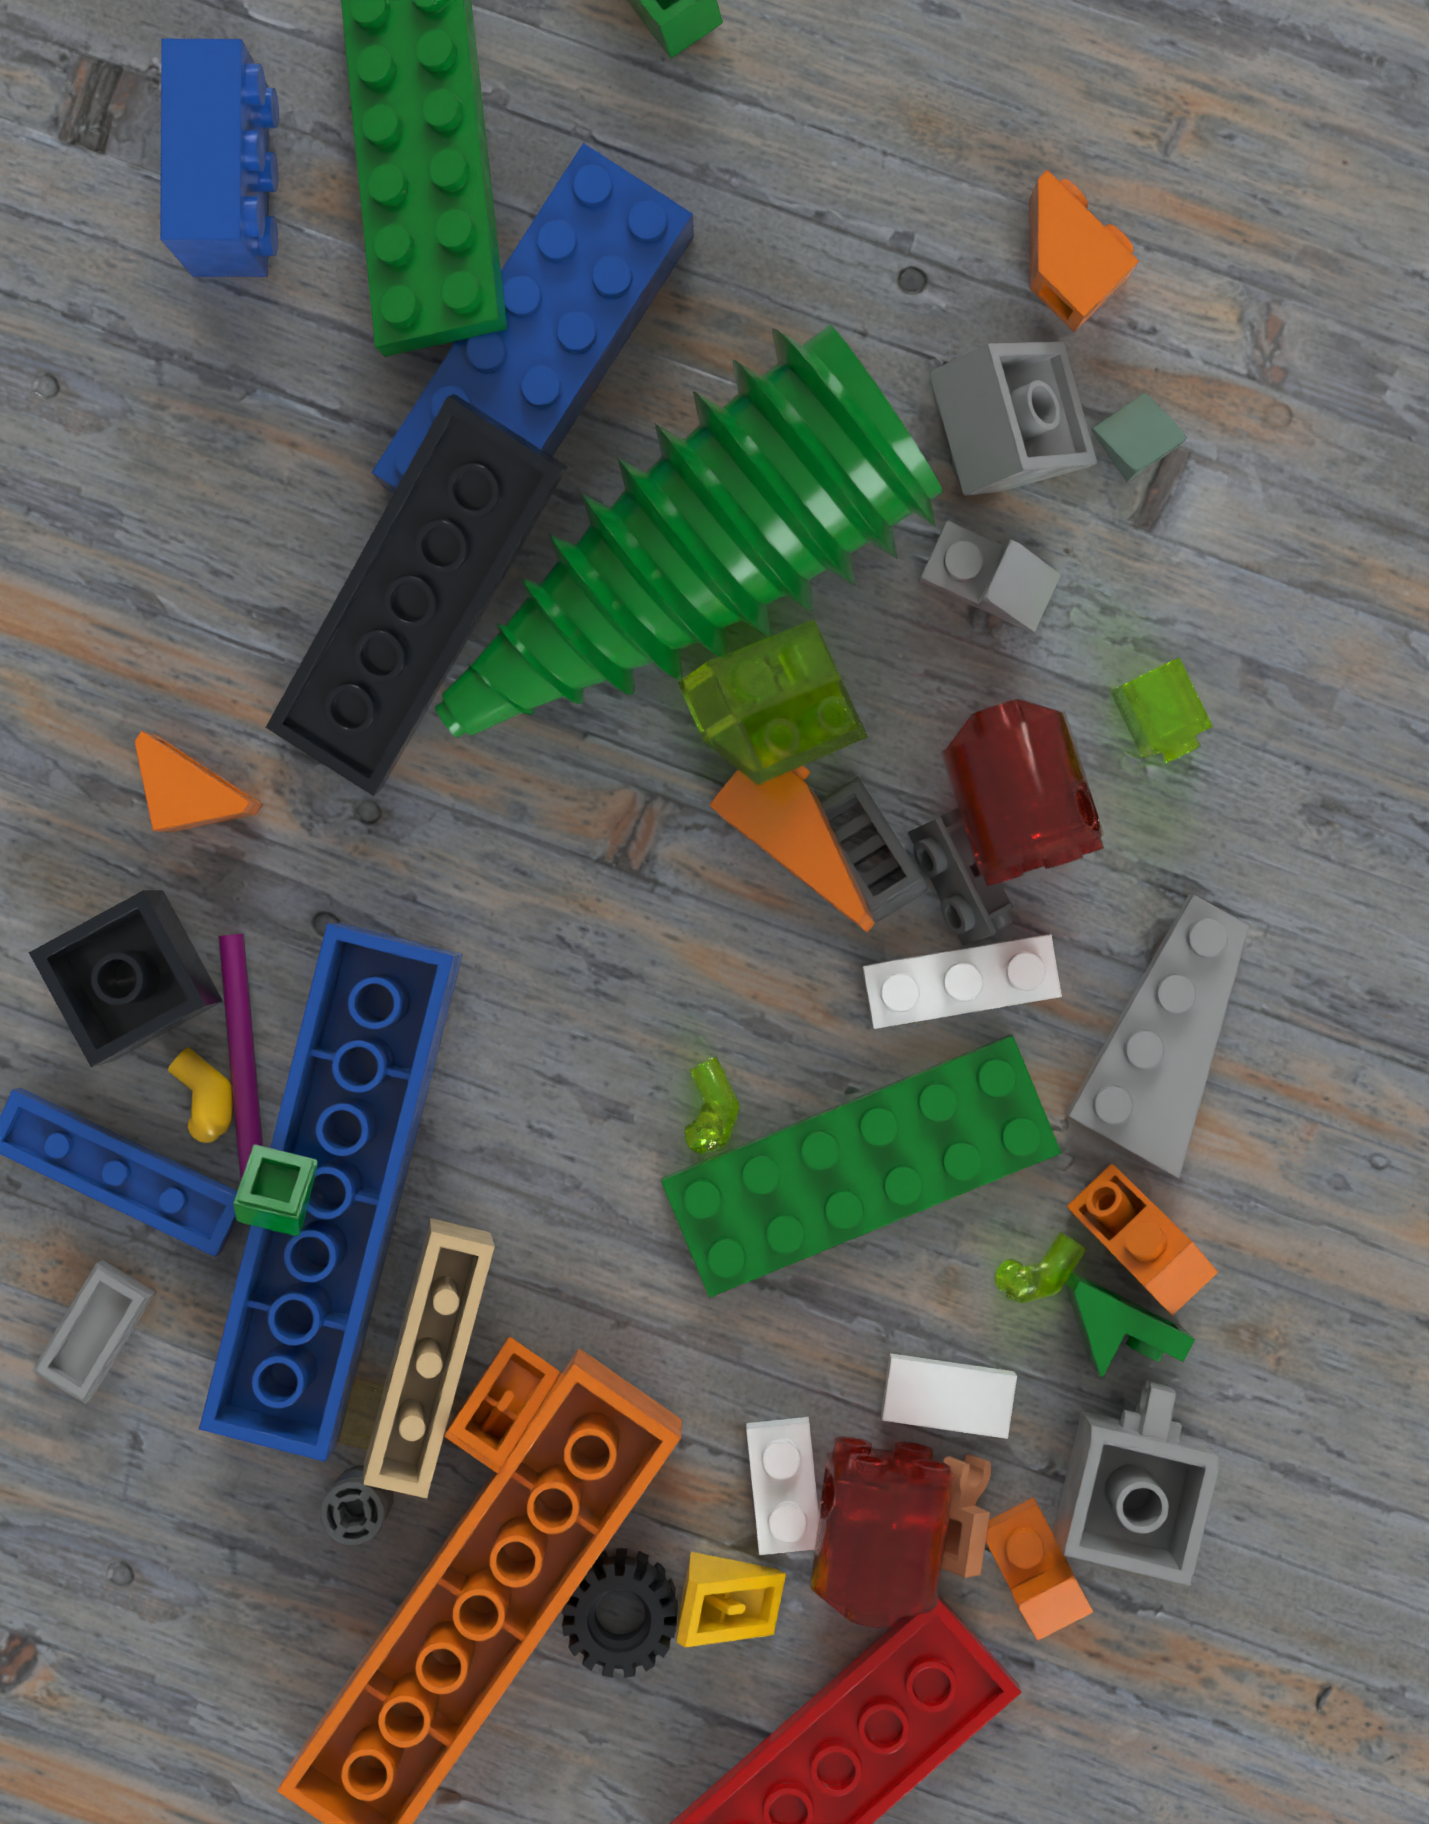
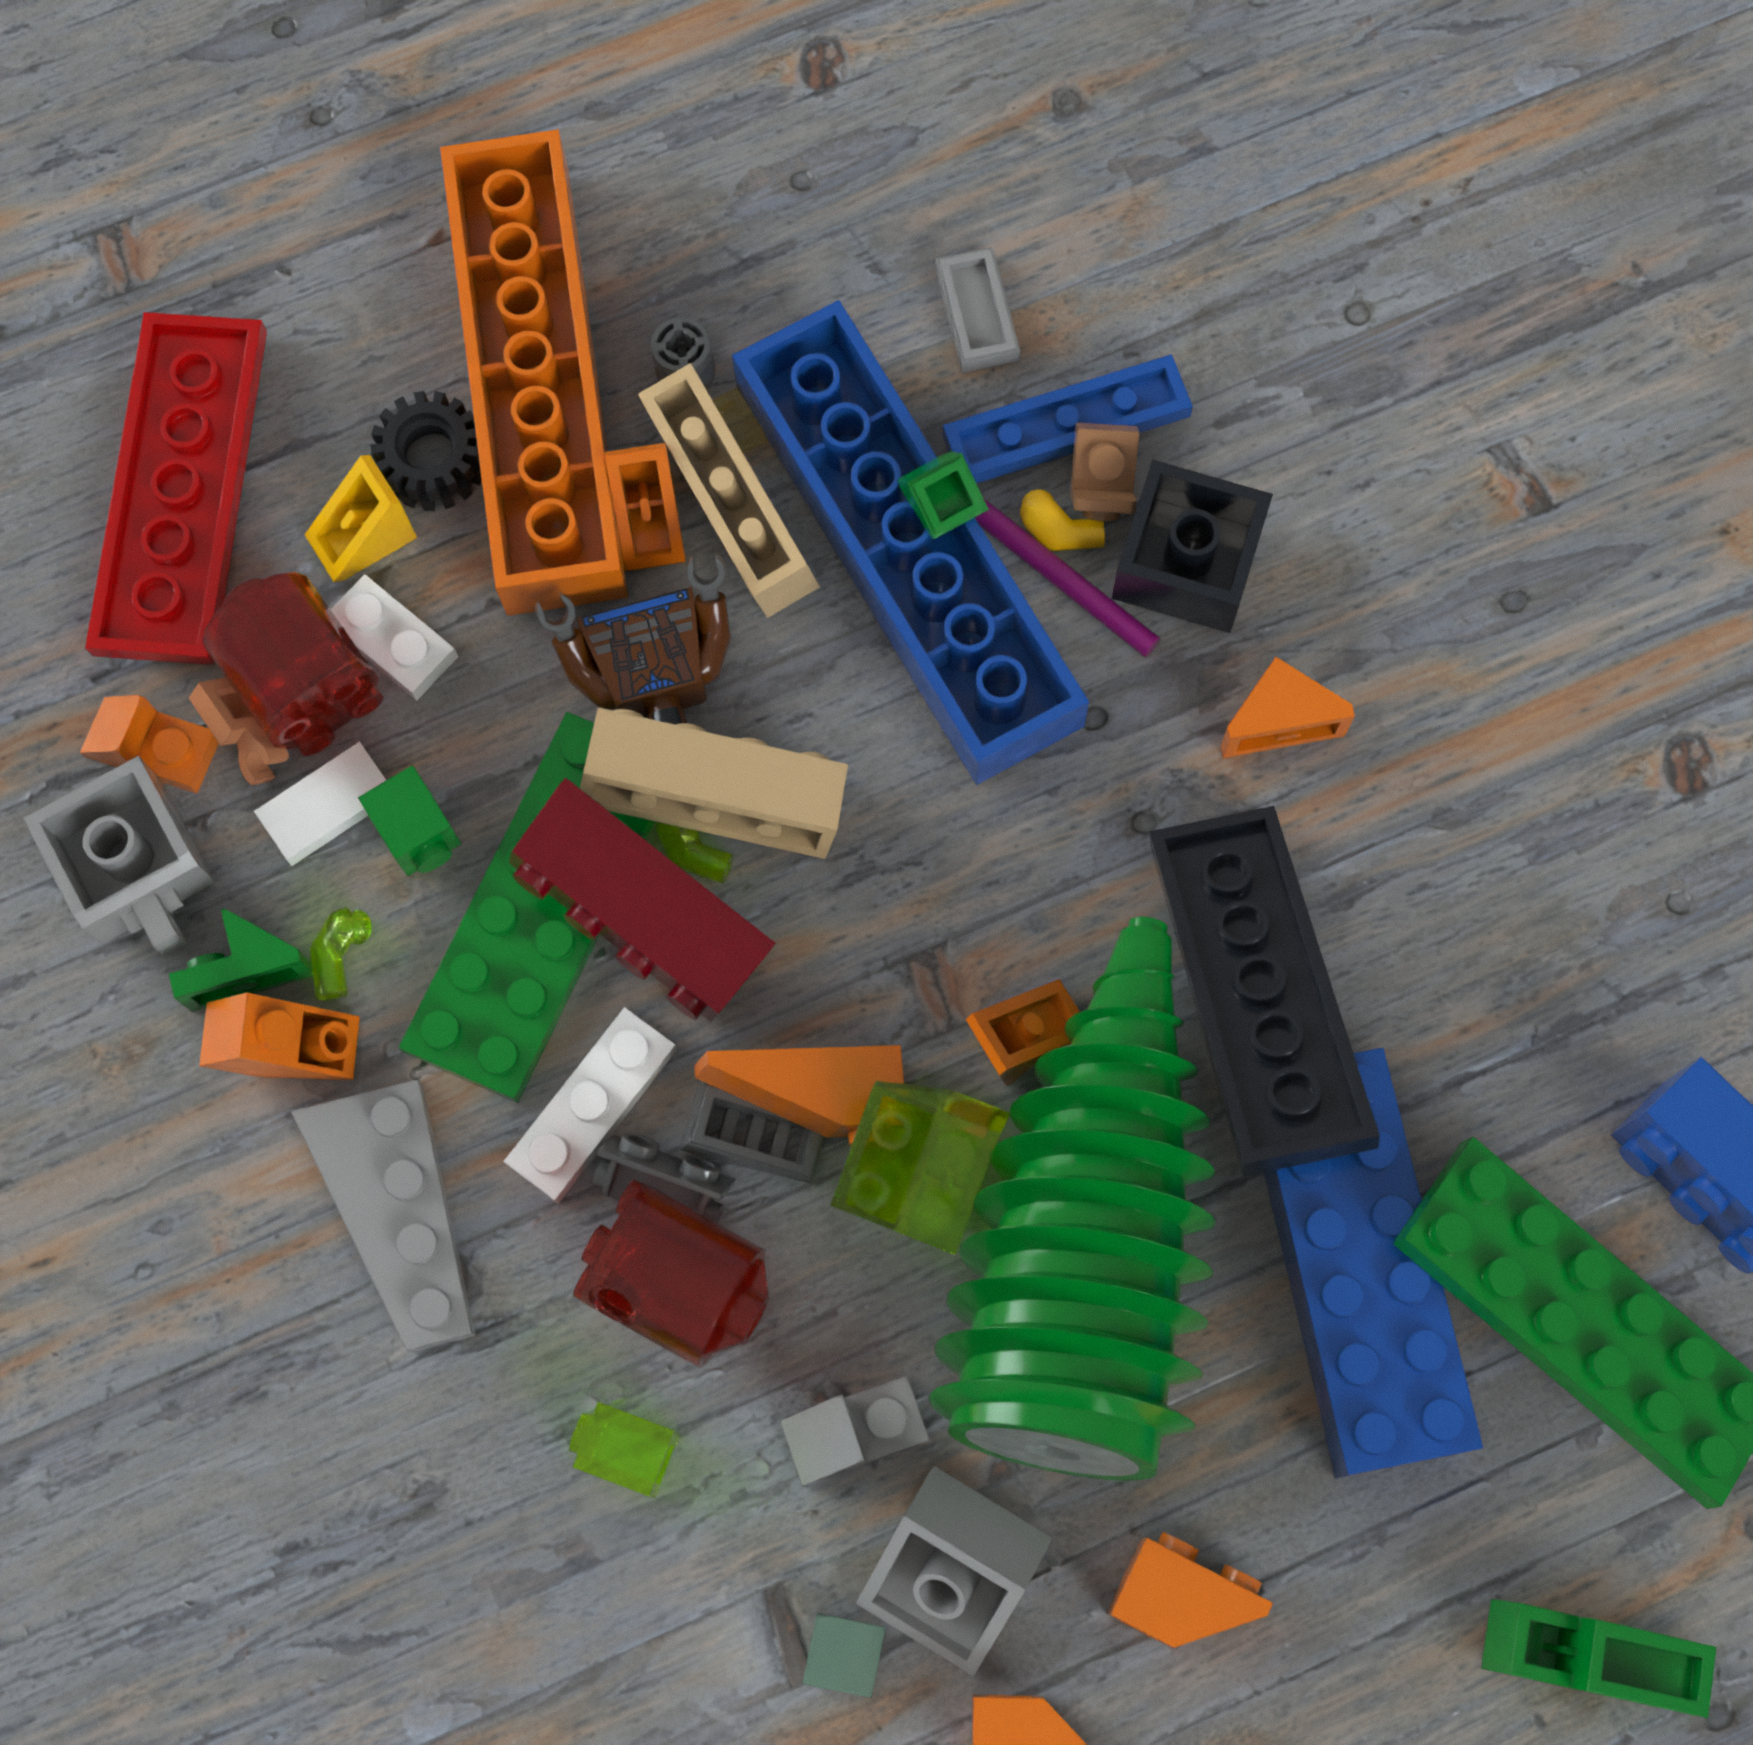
camera: 140 degrees right, 15 degrees down
(130, 1102) = (1104, 470): none -> medium nougat bracket
(605, 733) = (1023, 1028): none -> orange slope
(608, 1283) = (647, 652): none -> torso
(657, 1132) = (714, 782): none -> tan brick
(800, 1085) = (637, 902): none -> dark red slope
(881, 252) = (1181, 1600): none -> orange slope
(902, 1317) = (410, 822): none -> green brick

